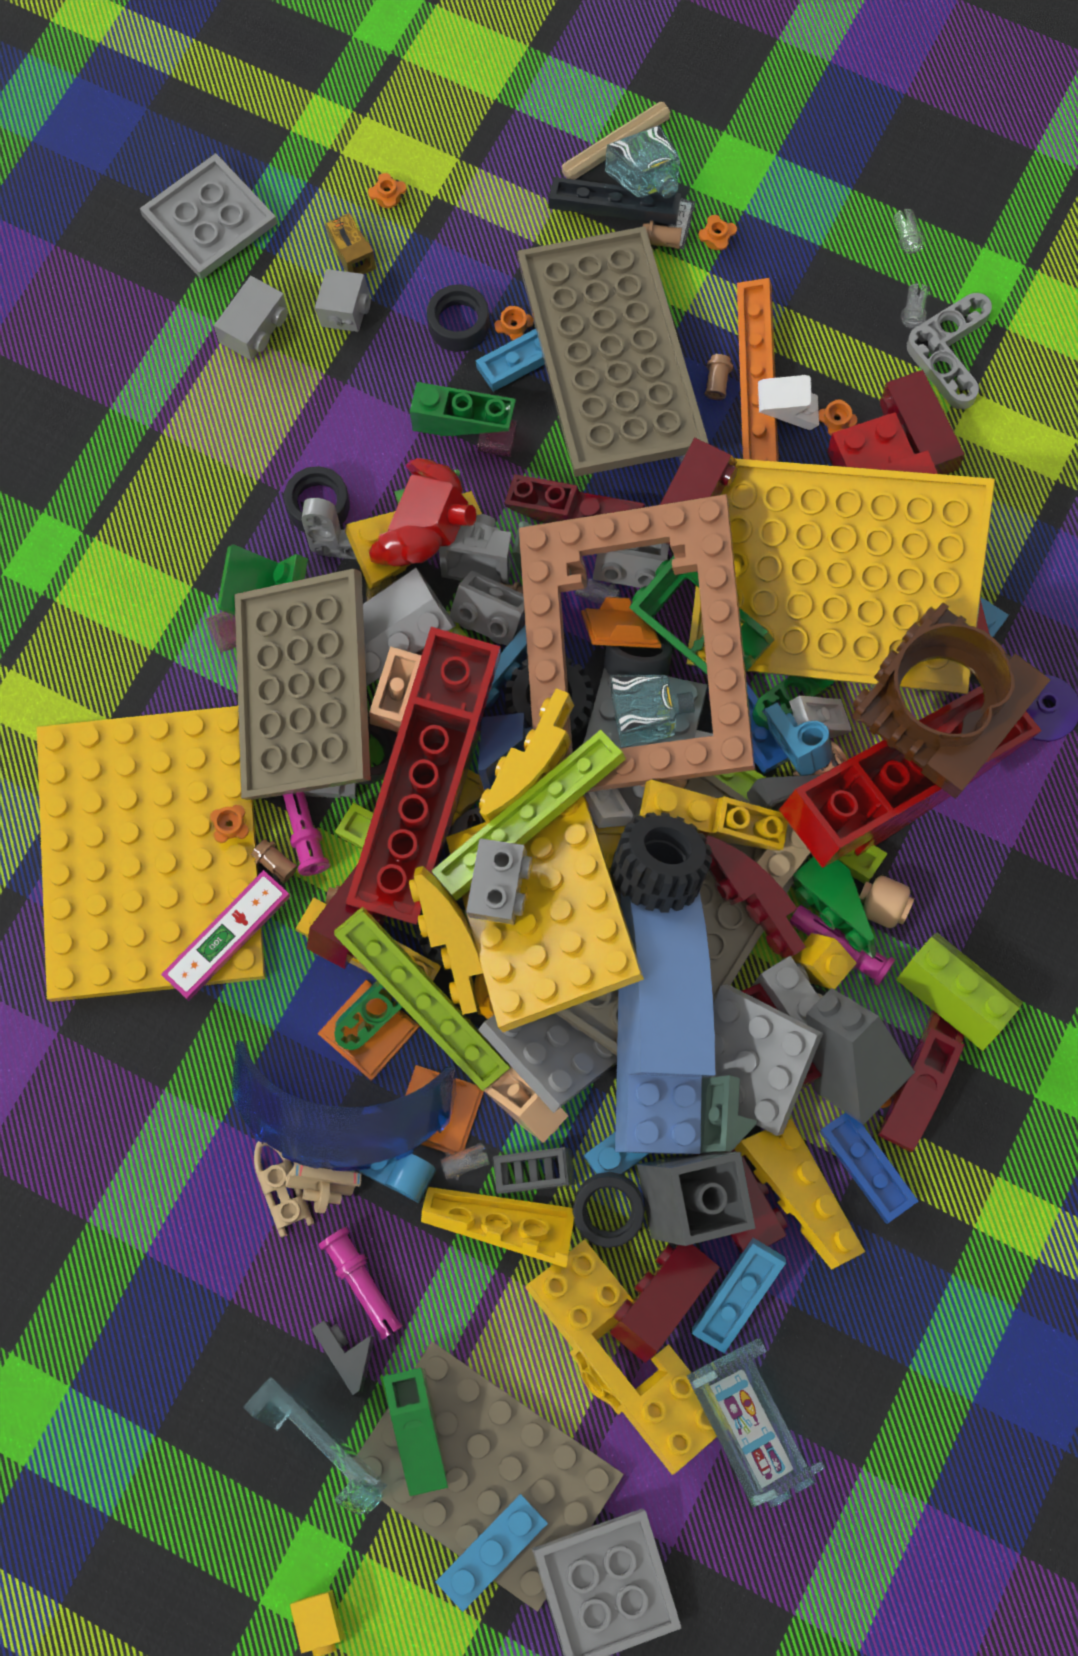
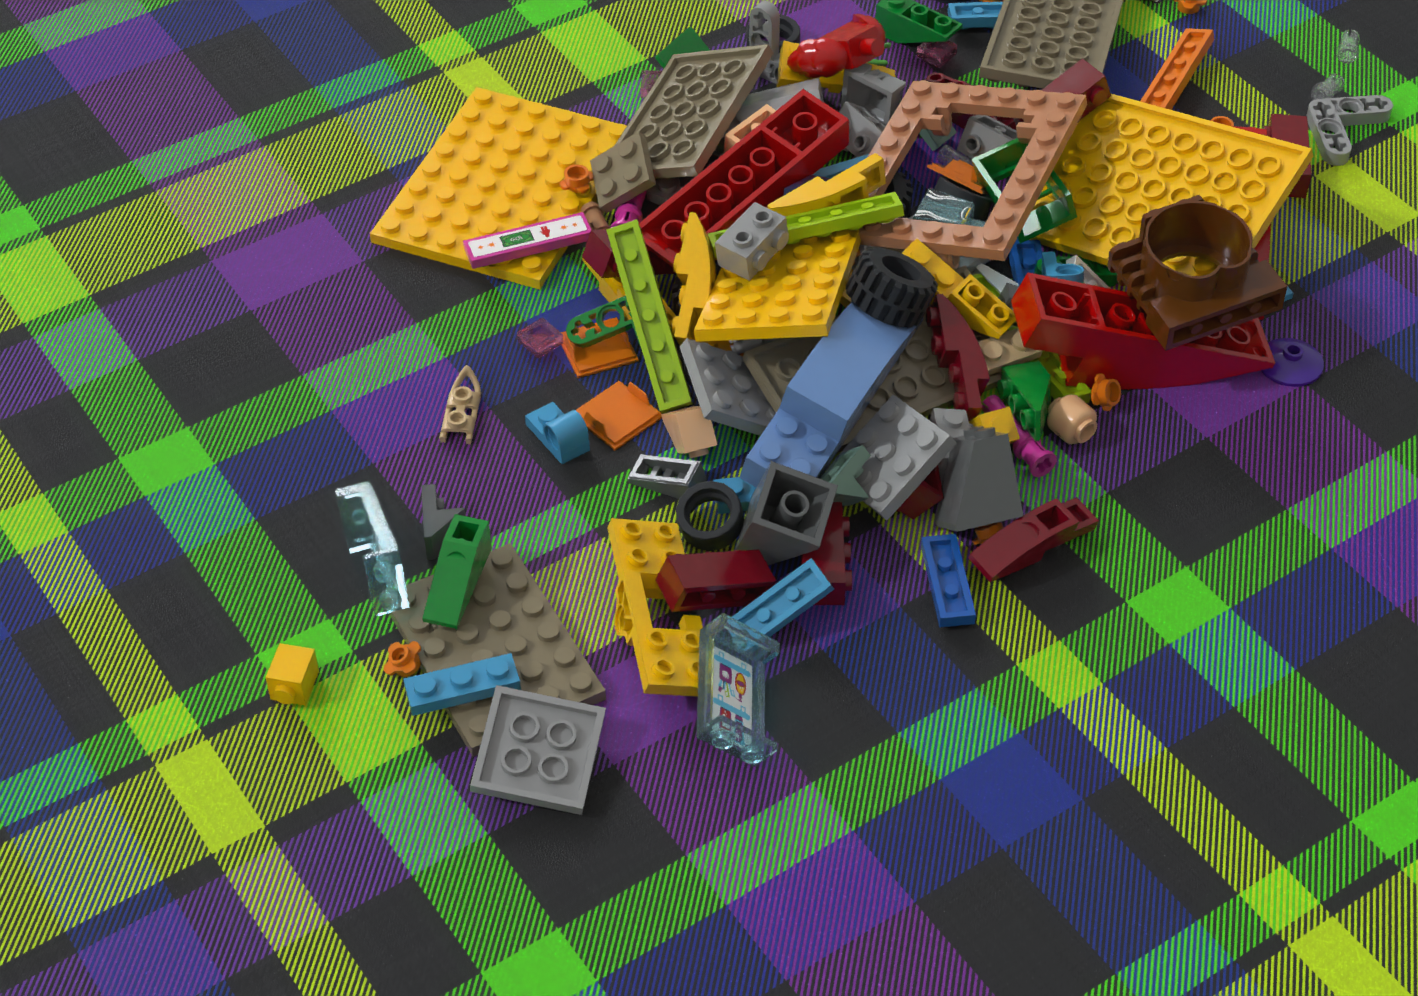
camera: 25 degrees right, 25 degrees down
(278, 798) = (622, 172): none -> dark tan plate
(308, 1054) = (540, 337): none -> clear pink plate
(322, 1184) = (497, 406): tan hips -> none
(339, 1135) = (545, 375): clear blue windscreen -> none
(352, 1267) = (481, 474): dark pink pin -> none
(417, 1533) = (403, 659): none -> orange plate
(463, 1161) = (614, 446): clear pin -> none
(513, 1224) = (616, 487): yellow wing -> none
(718, 368) = (1140, 71): medium nougat pin -> none
(789, 400) = (1181, 95): white slope -> none
(803, 1192) = (880, 566): yellow wing -> none
(900, 848) = (1105, 392): none -> orange plate
(959, 991) = (1097, 491): lime slope -> none

